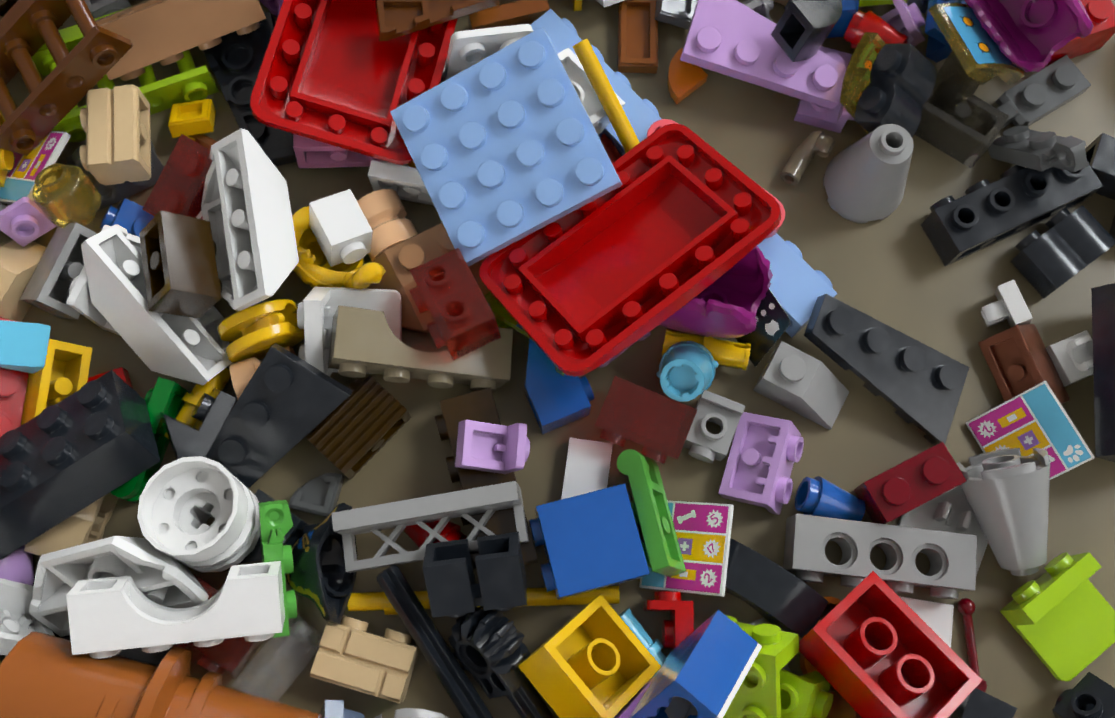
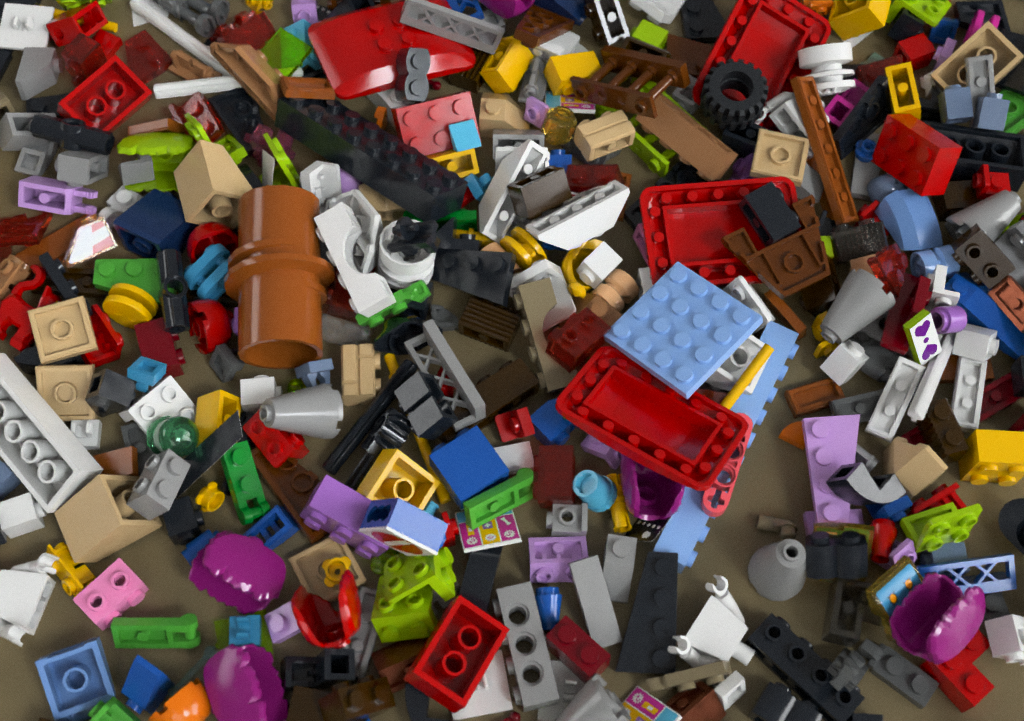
camera: 70 degrees right, 10 degrees down
(114, 356) = (478, 185): none -> dark azure tile
(188, 491) = (413, 236): none -> black hips
(192, 118) = (637, 170): yellow tile -> none
(492, 447) = (502, 389): lavender bracket -> none
(545, 443) = (514, 424): none -> red bracket
(845, 434) = (595, 601): none -> light grey tile
(933, 294) = (716, 631): none -> white torso
(989, 347) = (686, 679): none -> dark tan plate

